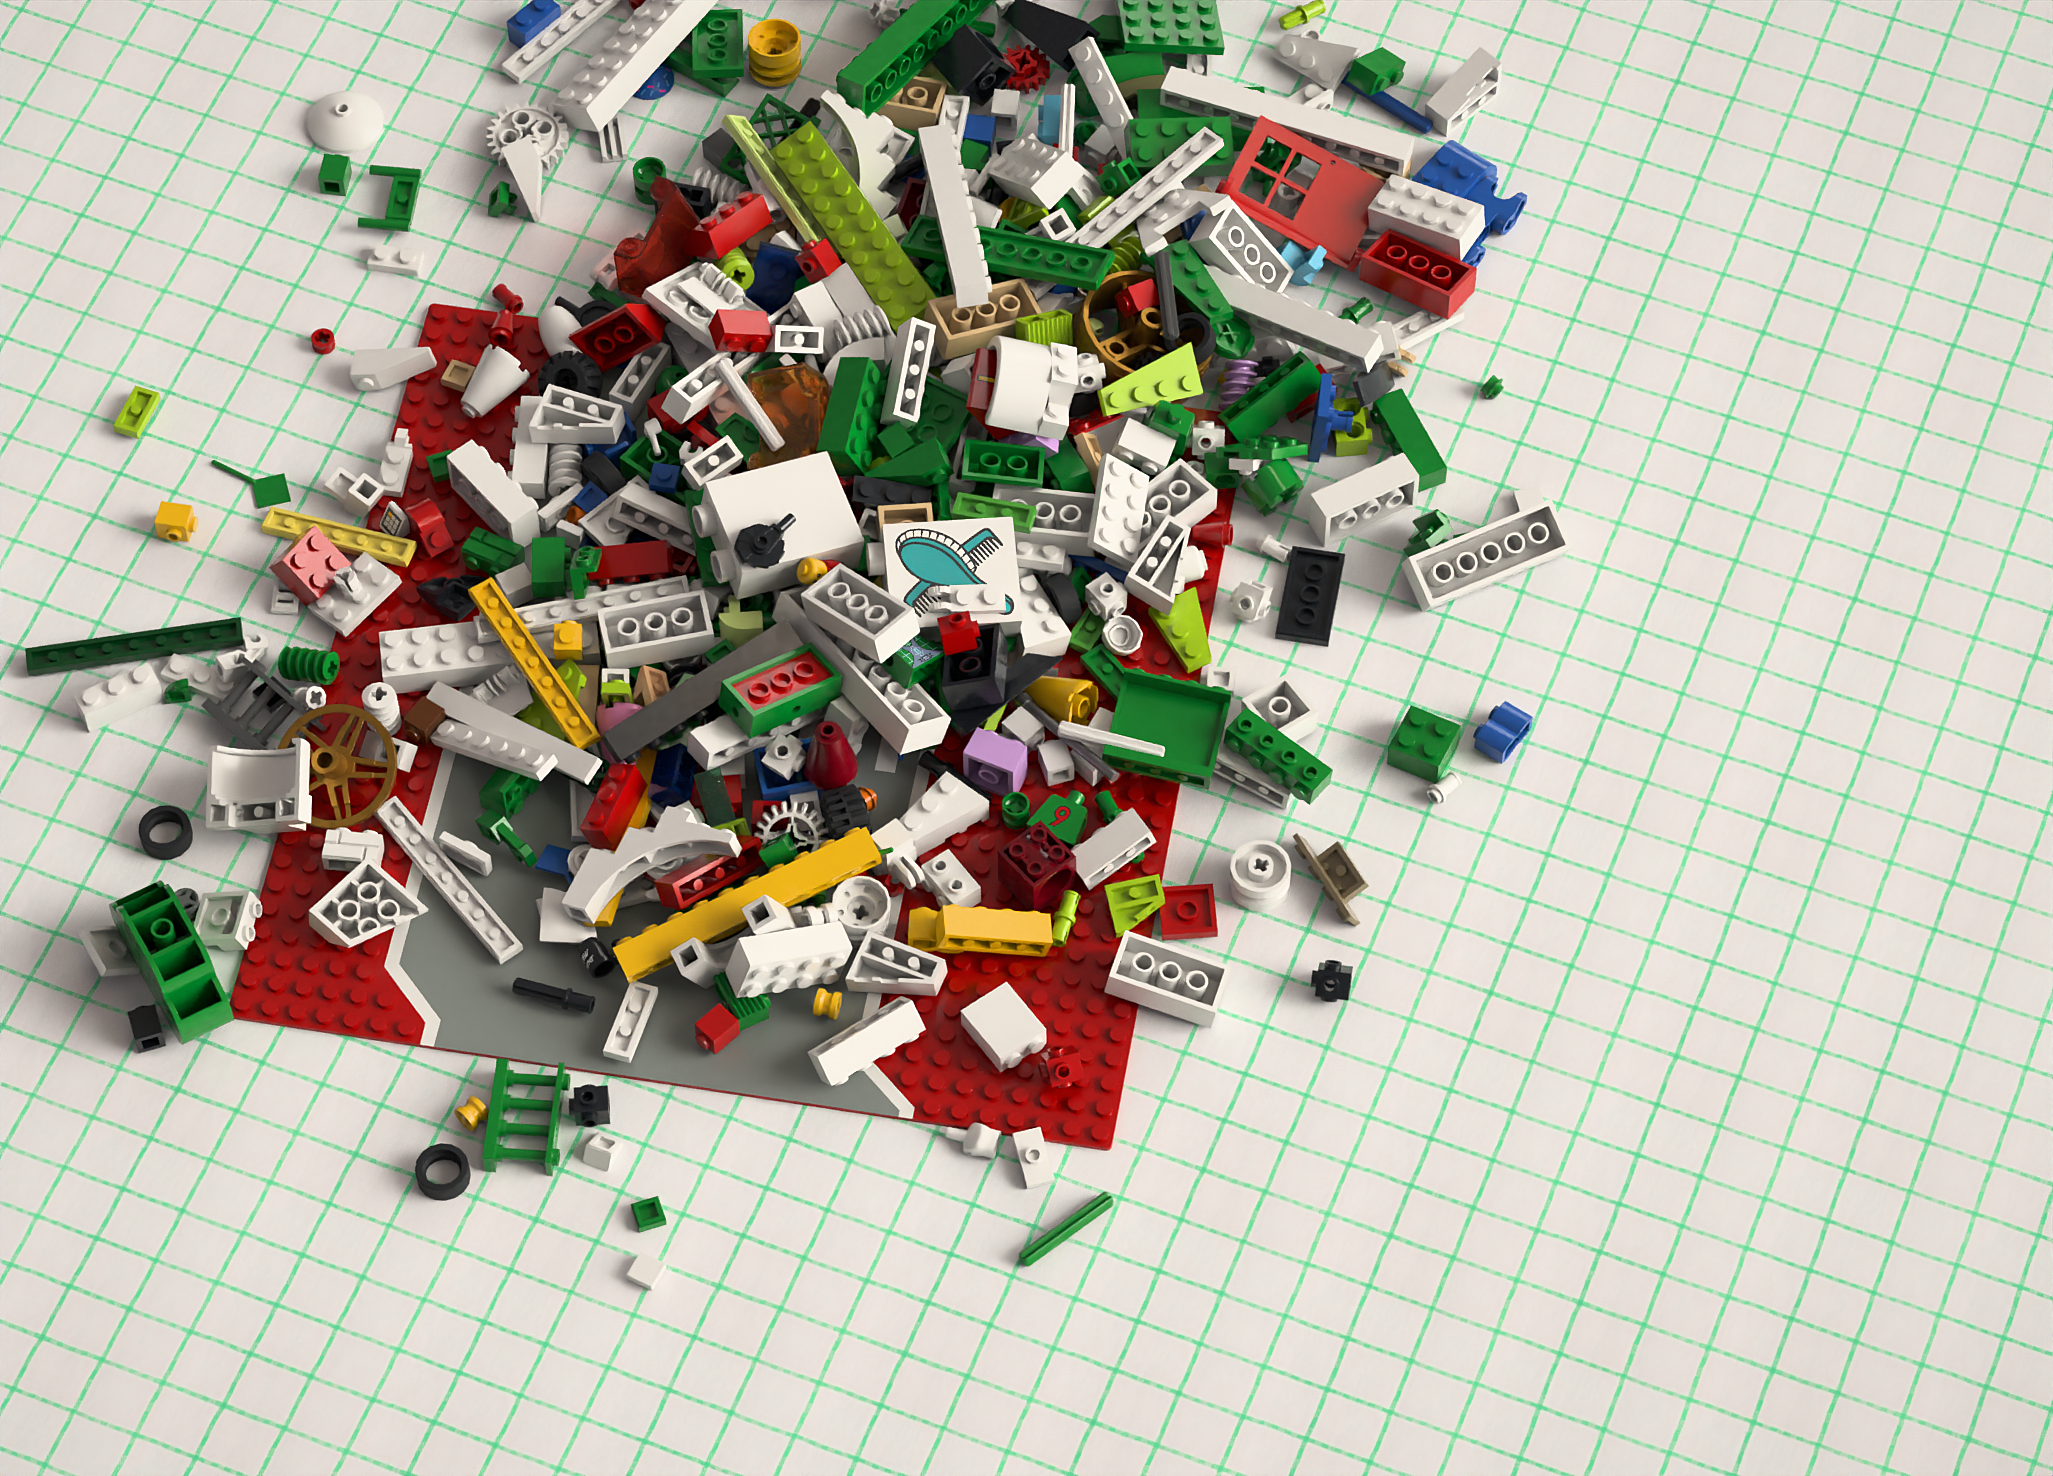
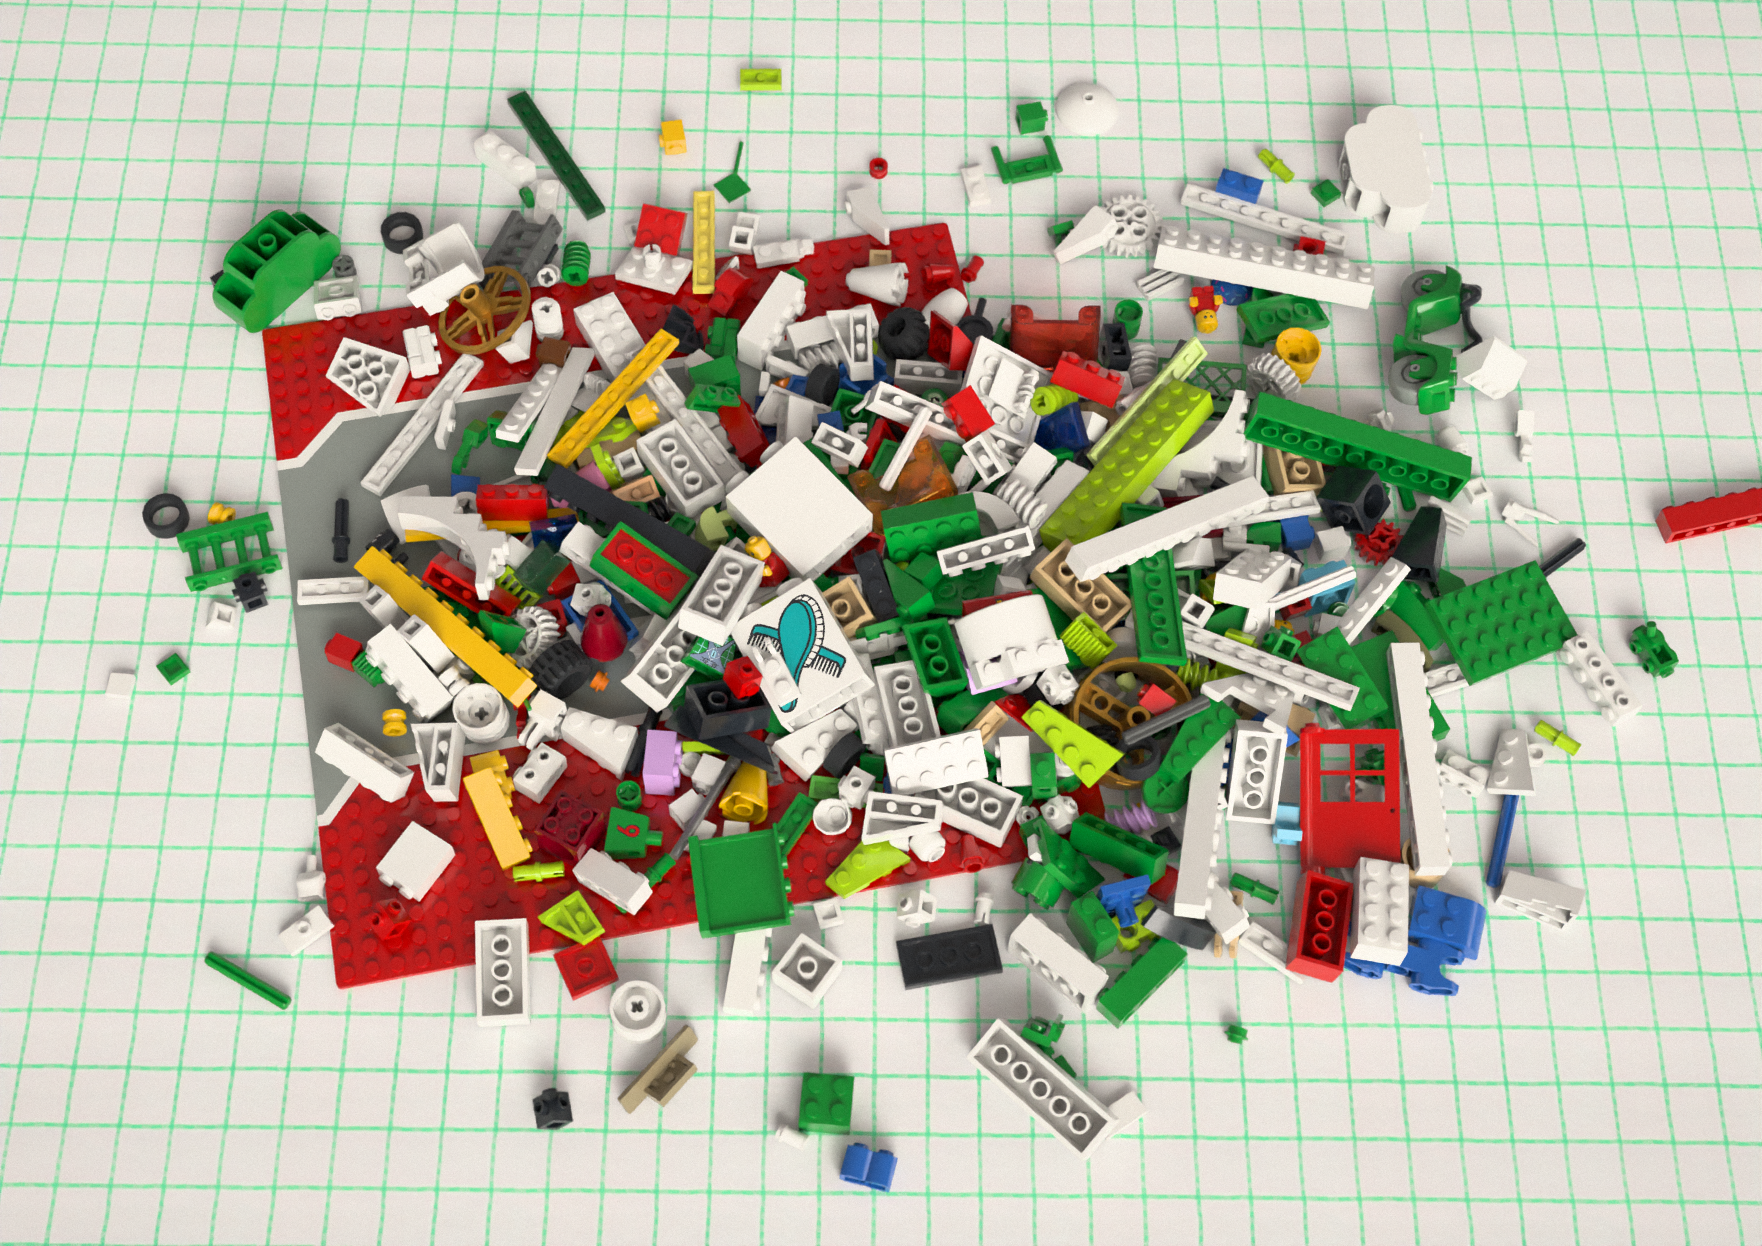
camera: 65 degrees right, 5 degrees up
(229, 666) = (576, 227): white piece -> none
(667, 110) = (1204, 307): none -> piece
(763, 544) = (754, 497): black piece -> none
(797, 78) = (1273, 376): none -> white gear
(817, 260) = (1078, 448): red brick -> none
(977, 507) = (884, 666): bright green plate -> none
(1100, 738) = (707, 841): white axle -> none
(1277, 756) = (751, 981): green brick -> none
(1339, 453) = (1092, 927): none -> green brick
(1376, 71) = (1523, 817): green brick -> none

